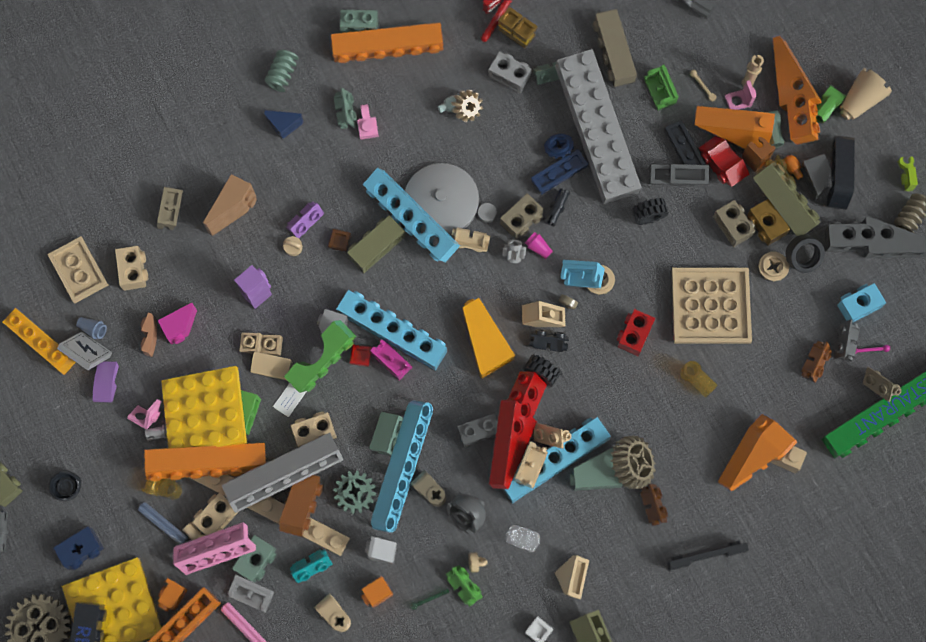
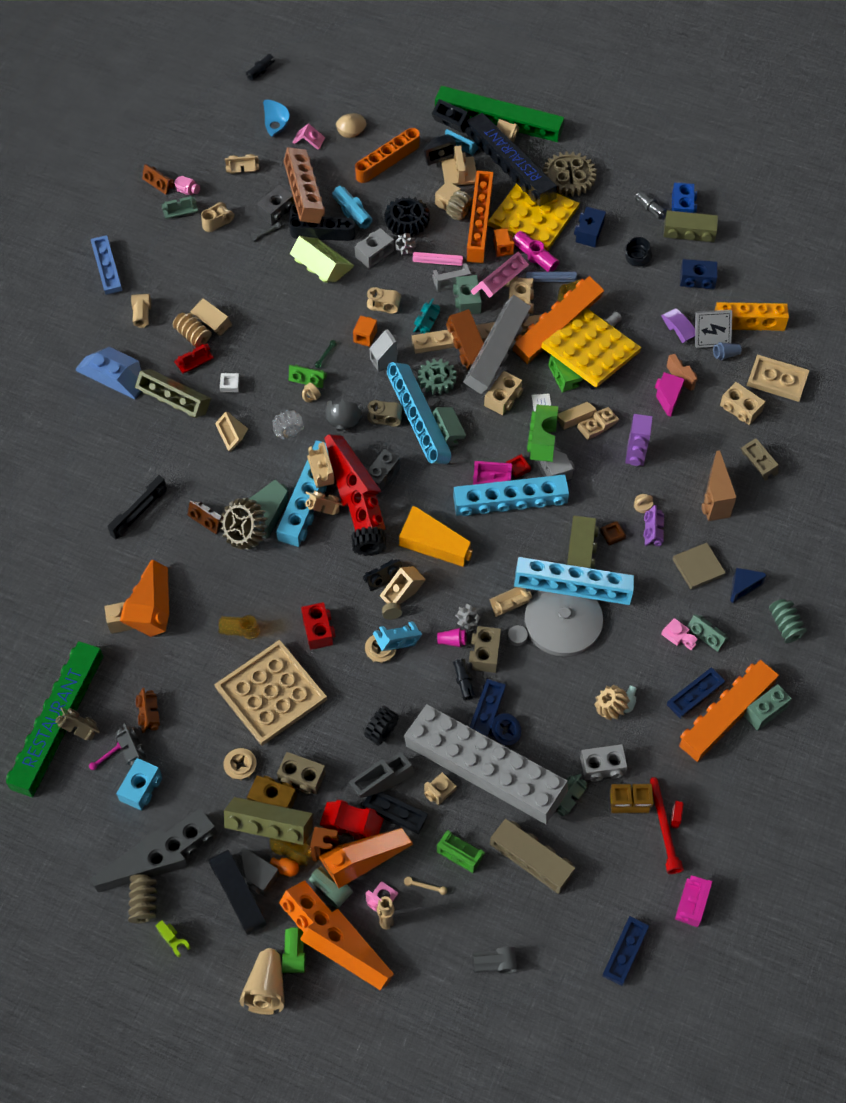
camera: 140 degrees right, 15 degrees down
(27, 414) = (698, 274): none -> dark blue brick
(152, 415) = (624, 323): bright pink bracket -> none
(152, 546) = (535, 251): none -> dark pink piece
(301, 164) = (699, 566): none -> dark tan tile
(398, 72) = (695, 692): none -> dark blue plate
(641, 141) = (439, 789): none -> tan bracket
(815, 261) = (223, 794): black tyre -> none

